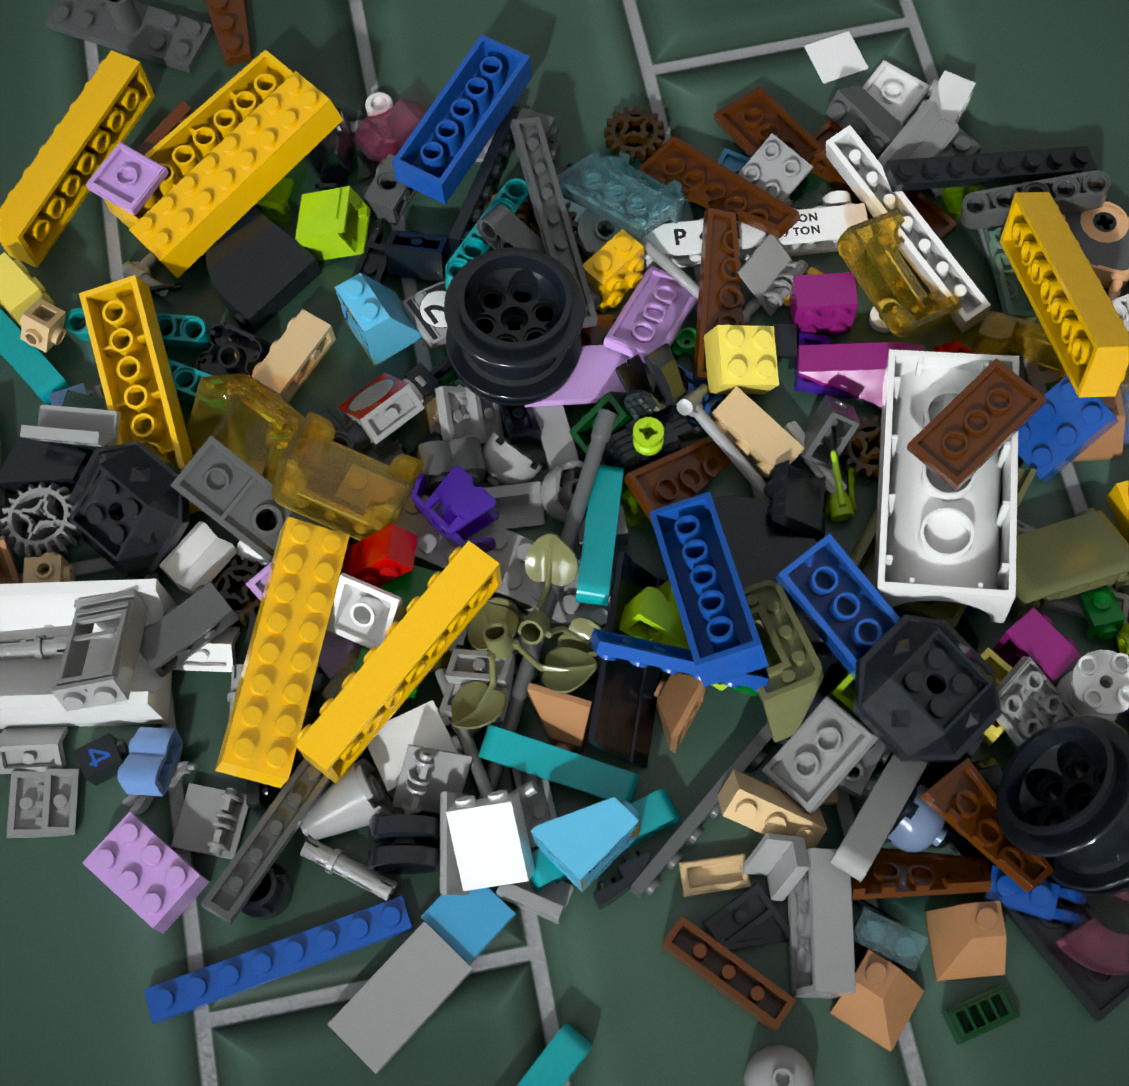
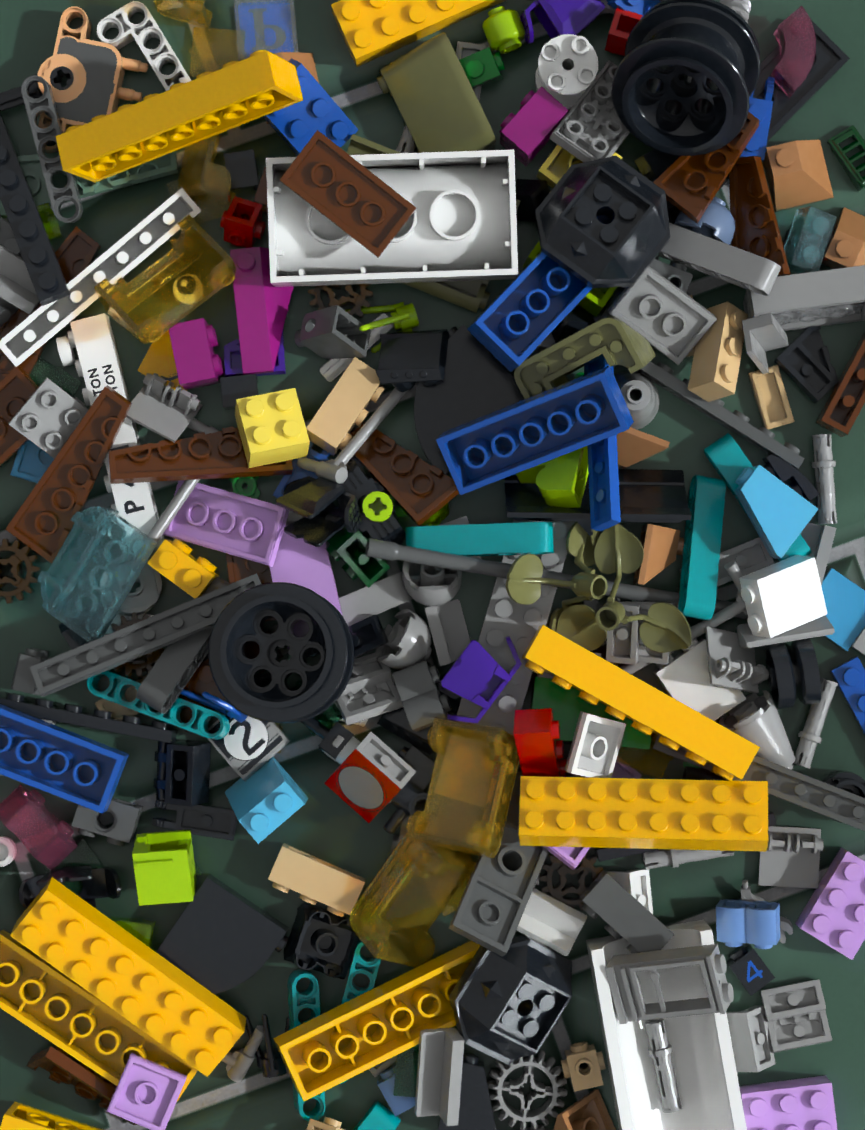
camera: 100 degrees left, 20 degrees up
(616, 920) = (824, 476): none -> light grey pin
(728, 721) = (648, 401): none -> light grey cone

